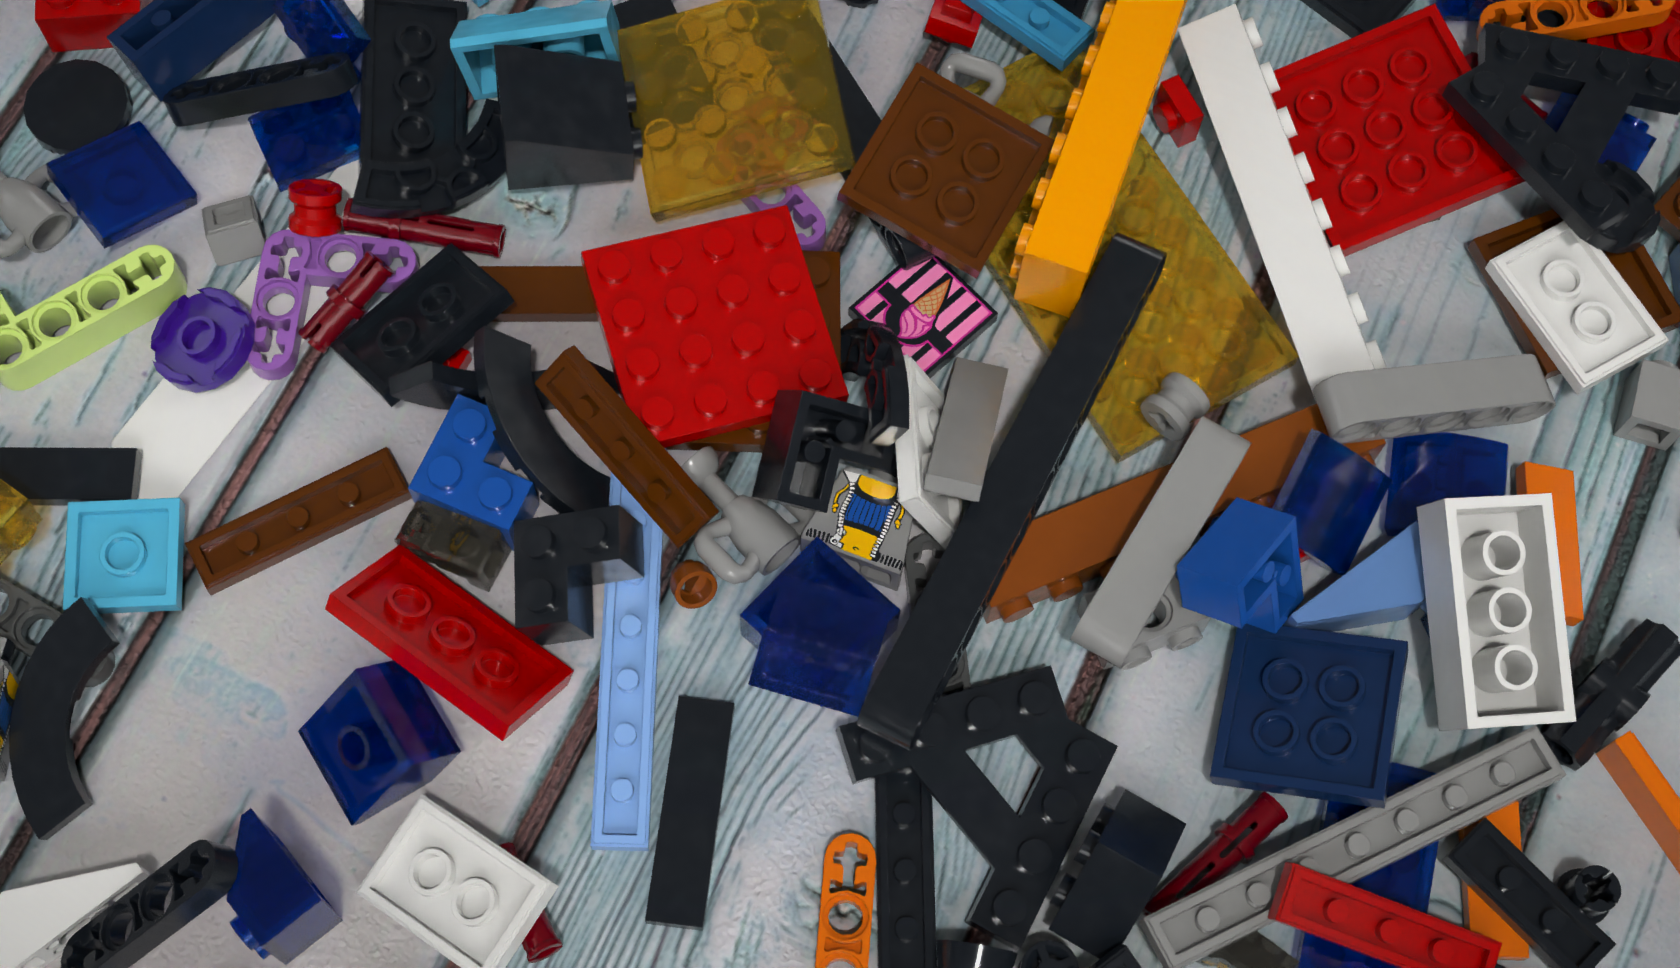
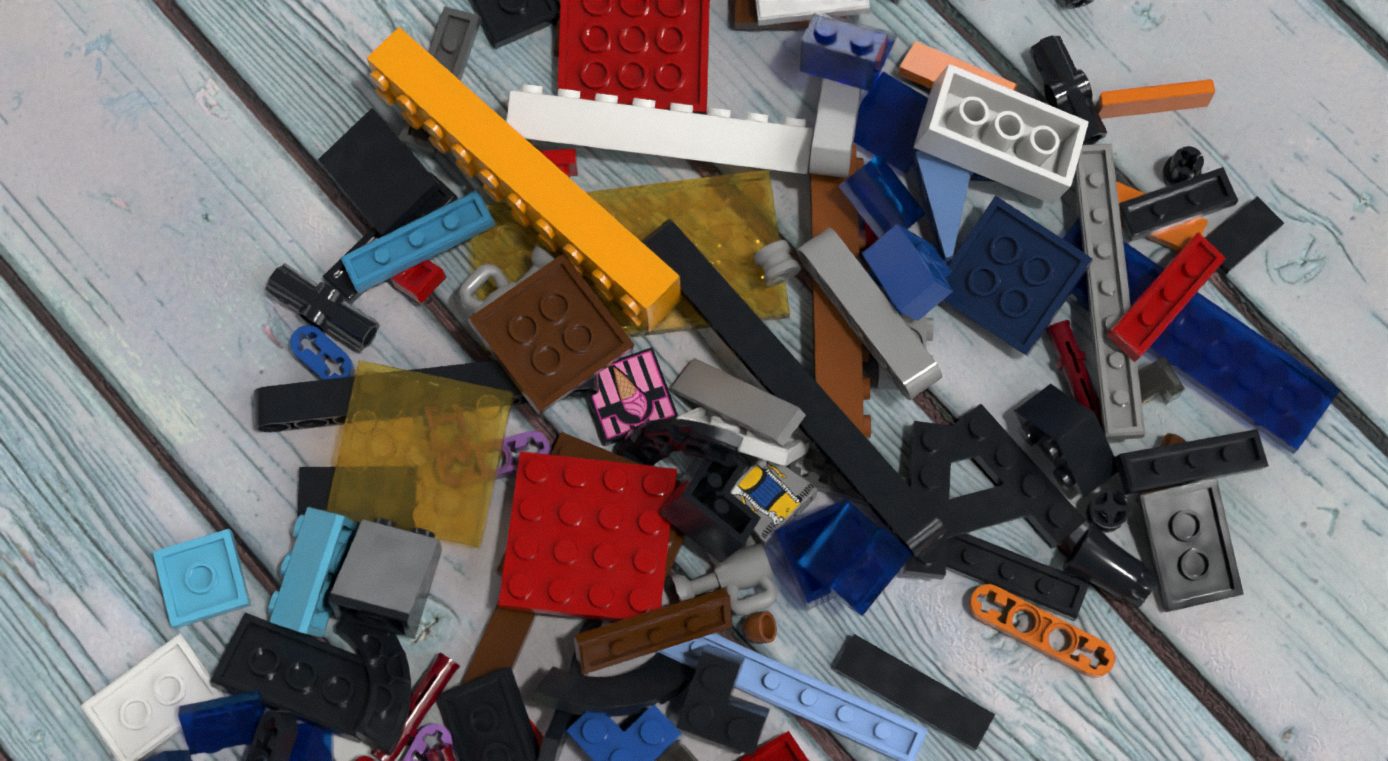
camera: 60 degrees left, 5 degrees up
(1504, 369) = (845, 50): none -> clear blue slope

